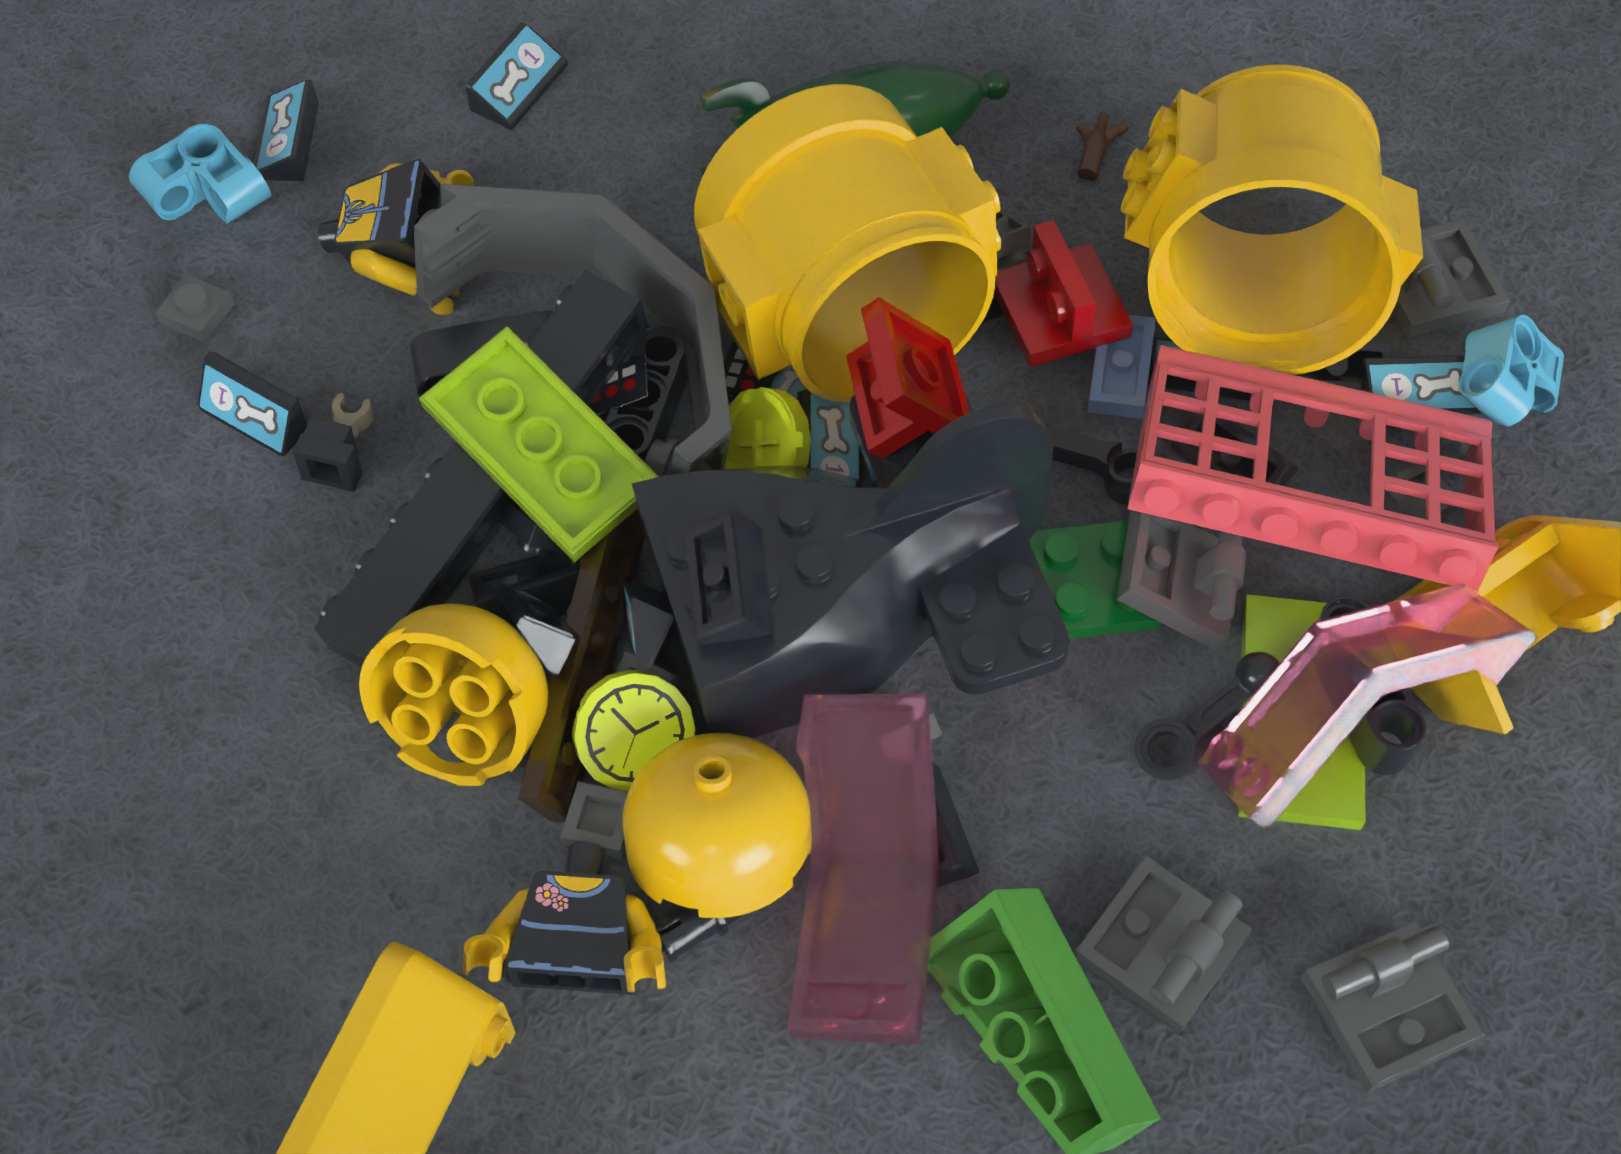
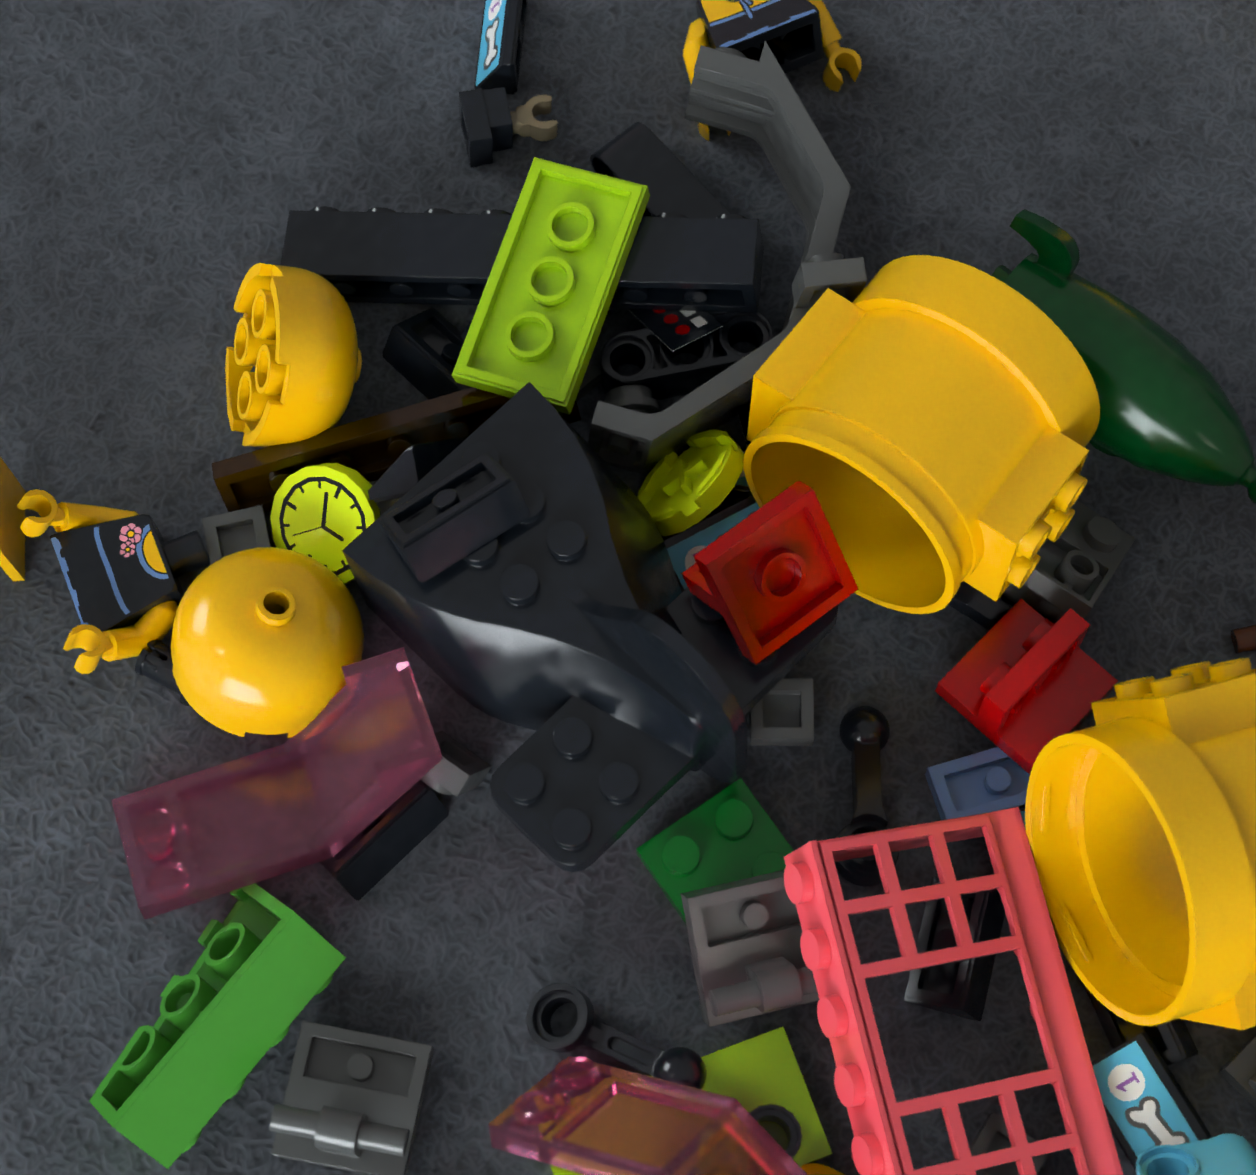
camera: 65 degrees right, 10 degrees up
(514, 77) = (1008, 41): slope -> none
(539, 626) = (379, 382): slope -> none
(680, 238) = (829, 271): none -> dark grey plate

